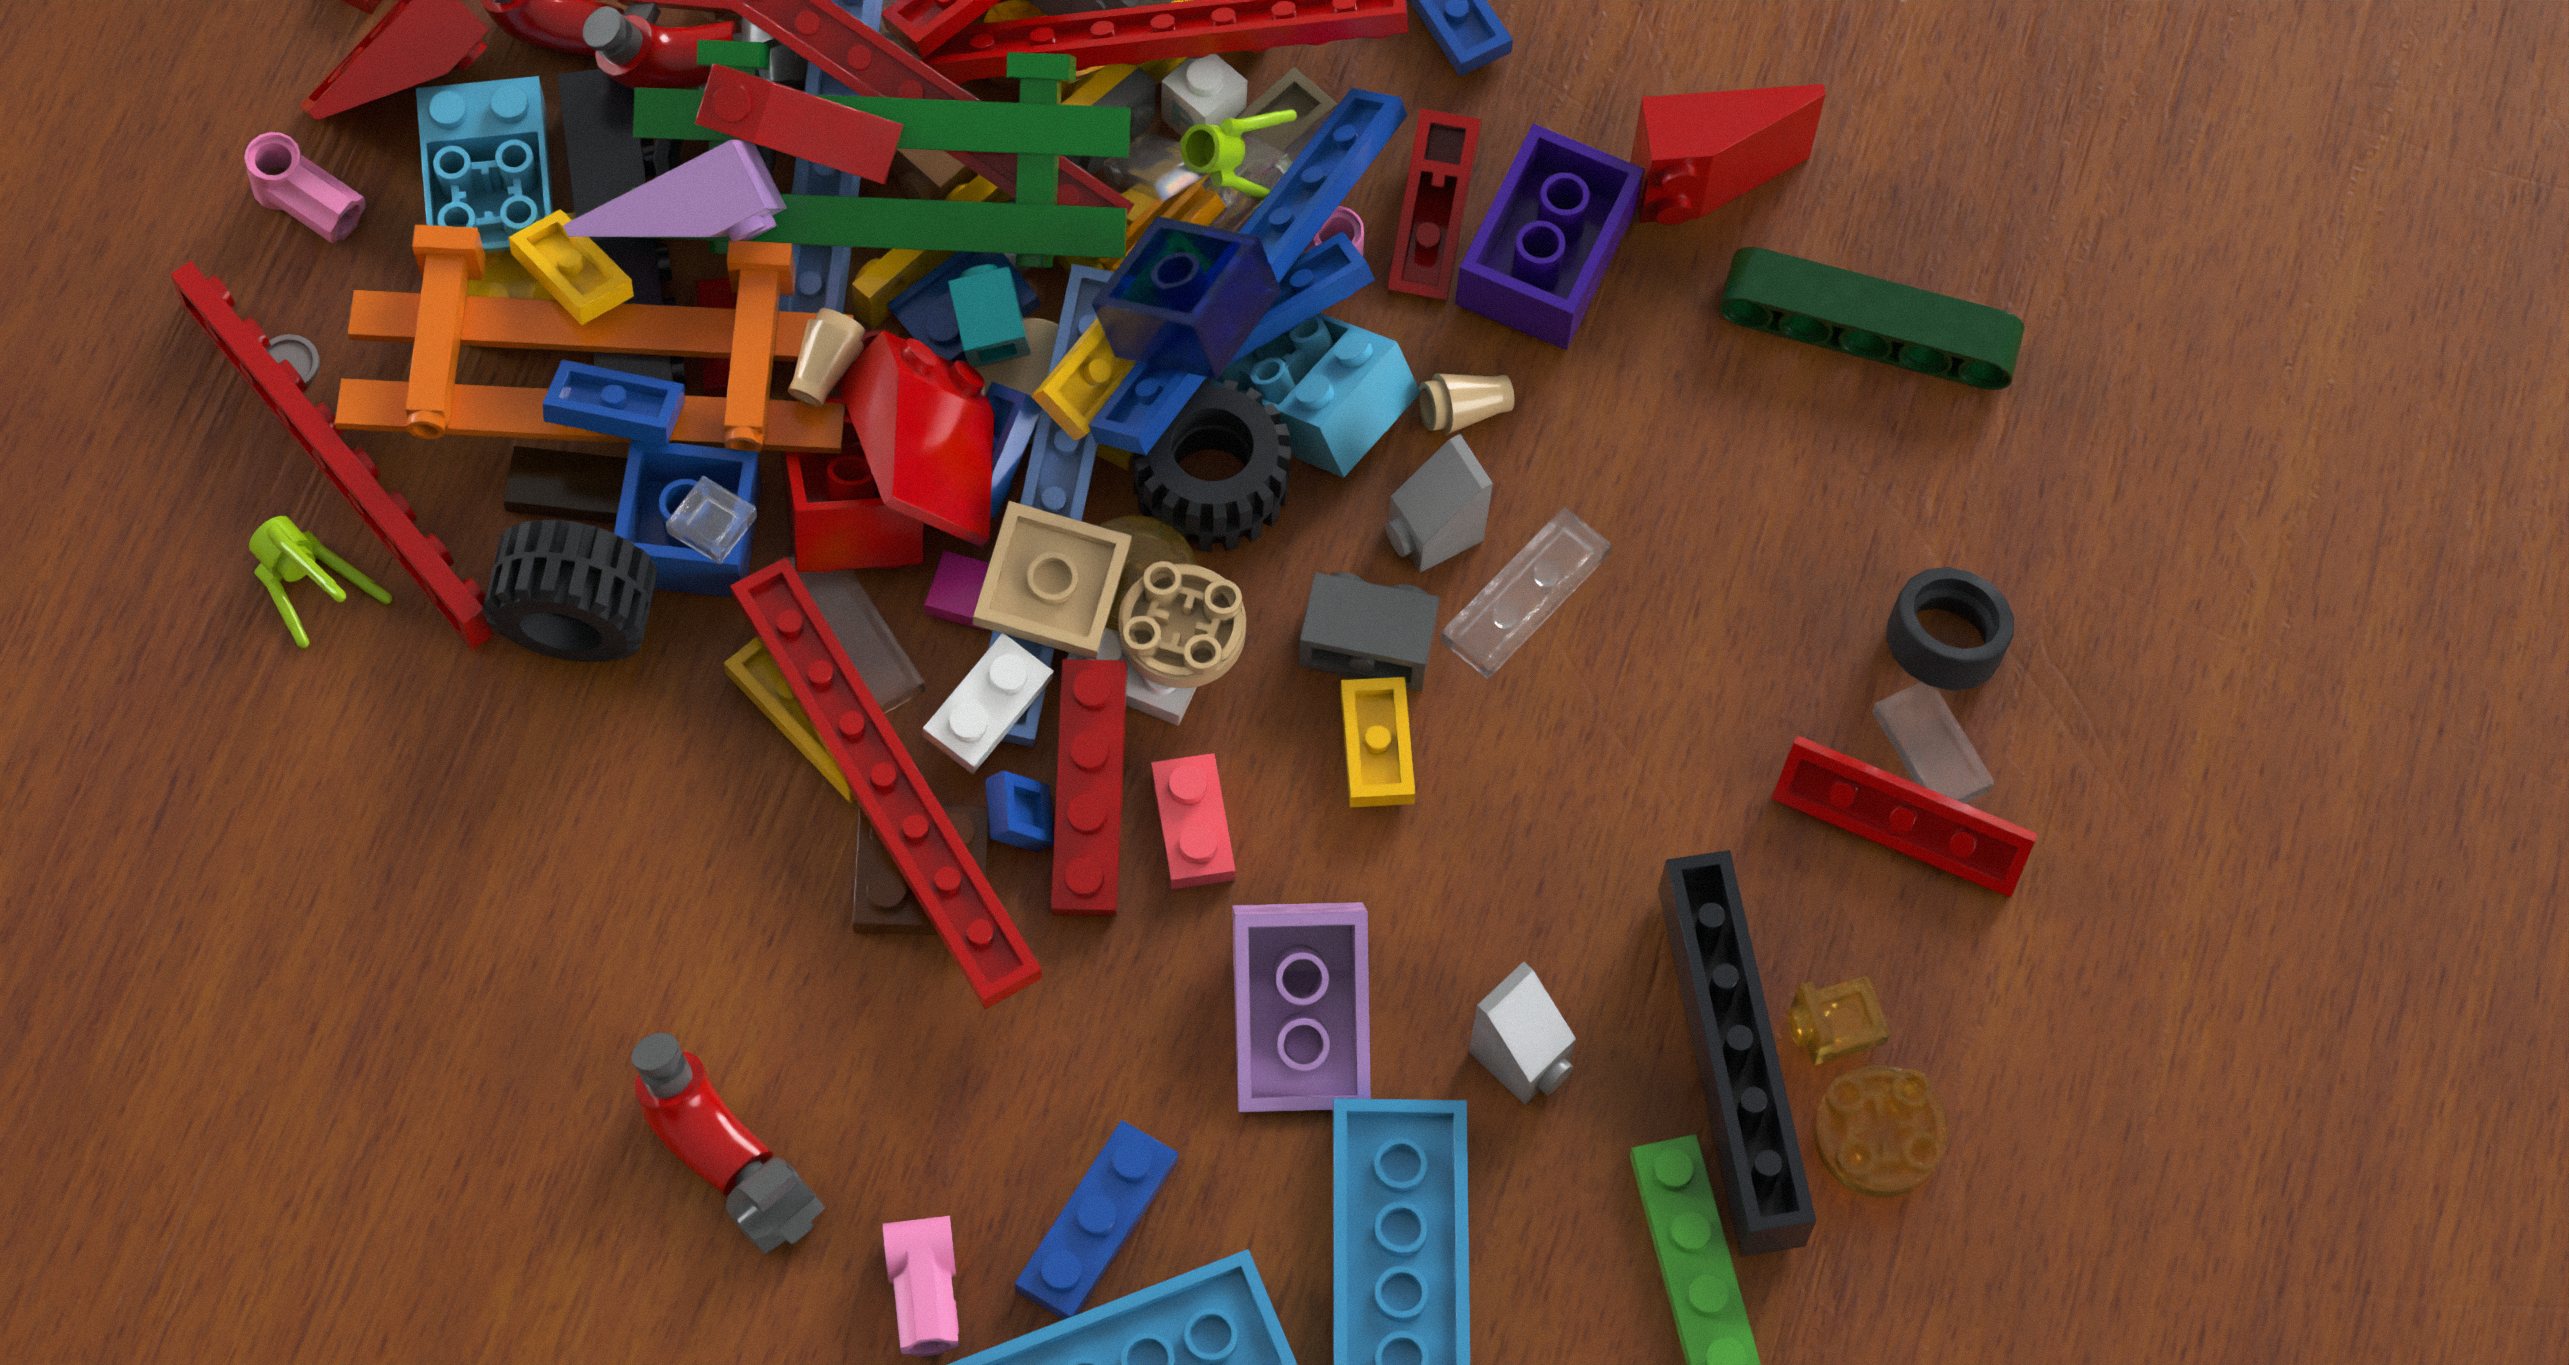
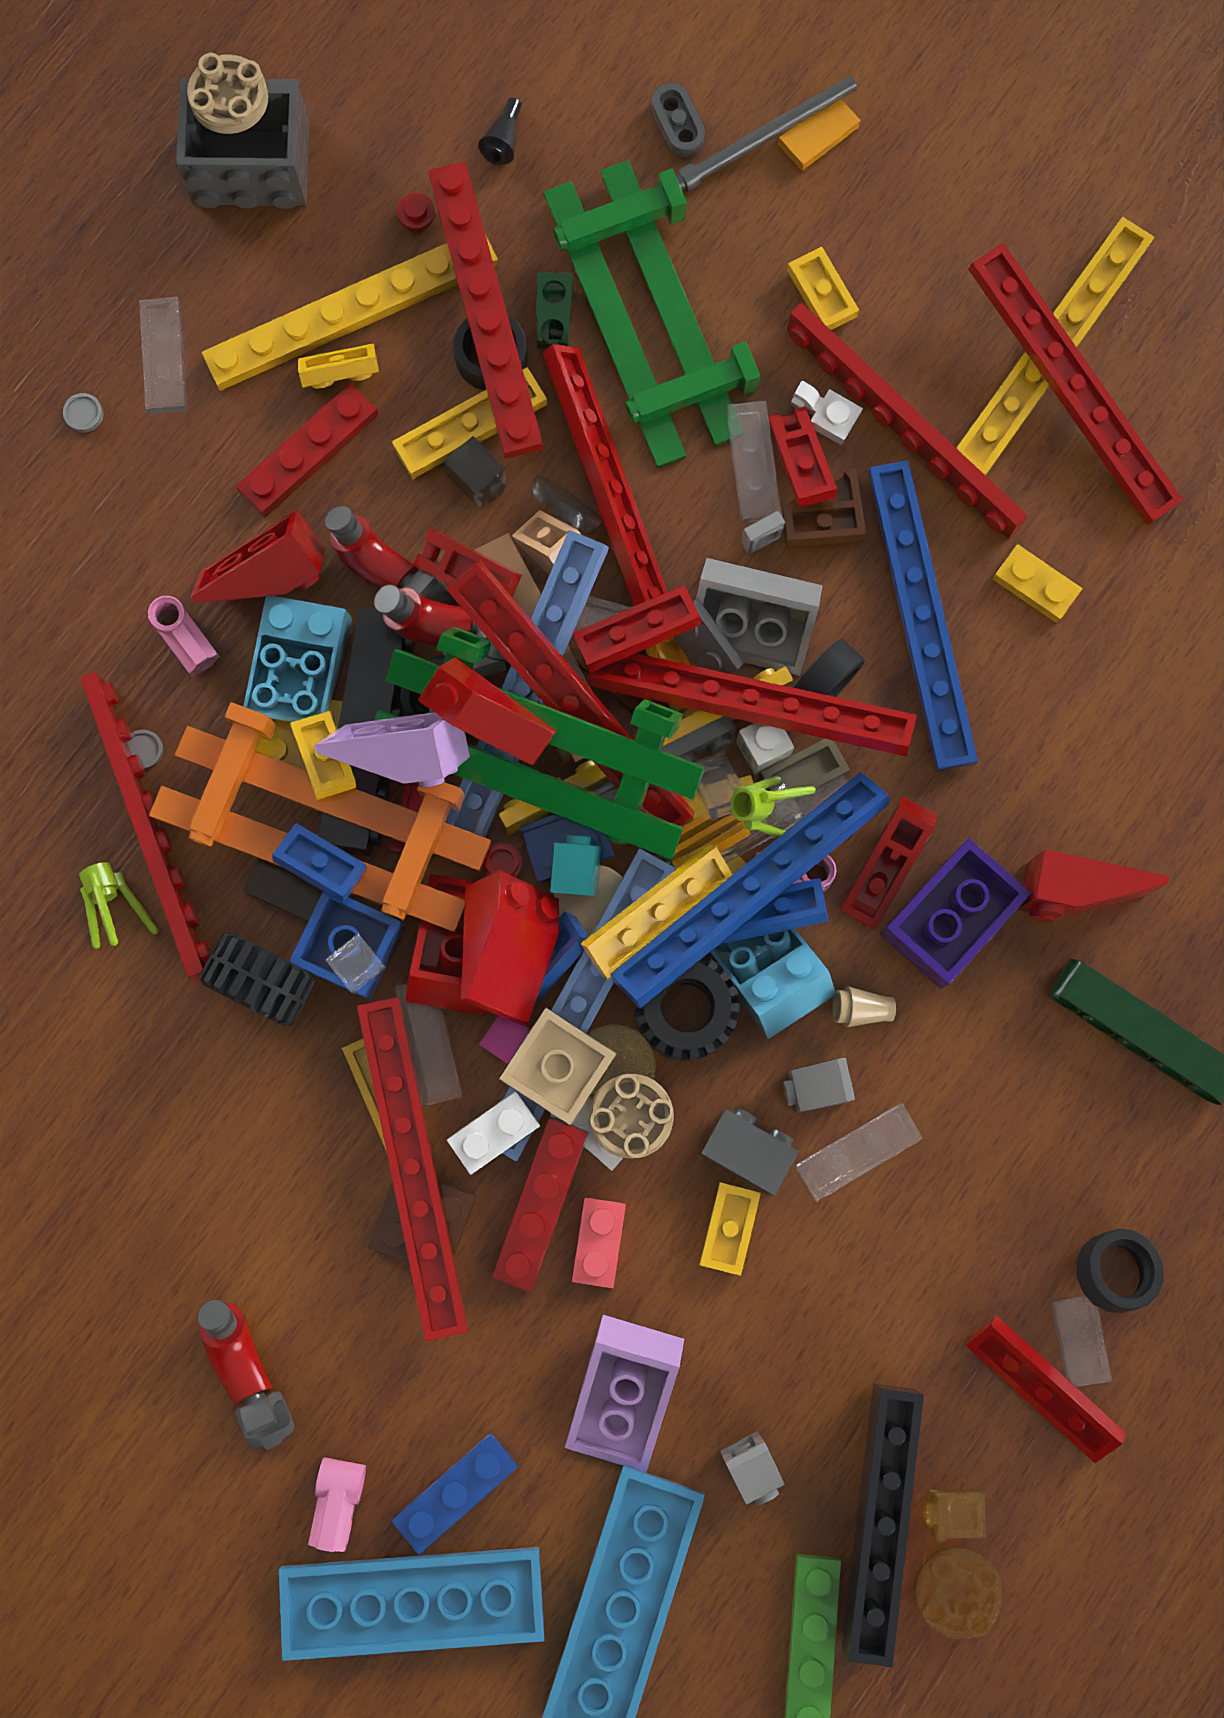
camera: 20 degrees right, 15 degrees up
(826, 353) = (461, 870): tan cone -> none
(1019, 811) = (492, 1207): blue plate -> none
(1186, 297) = (698, 915): clear blue brick -> none

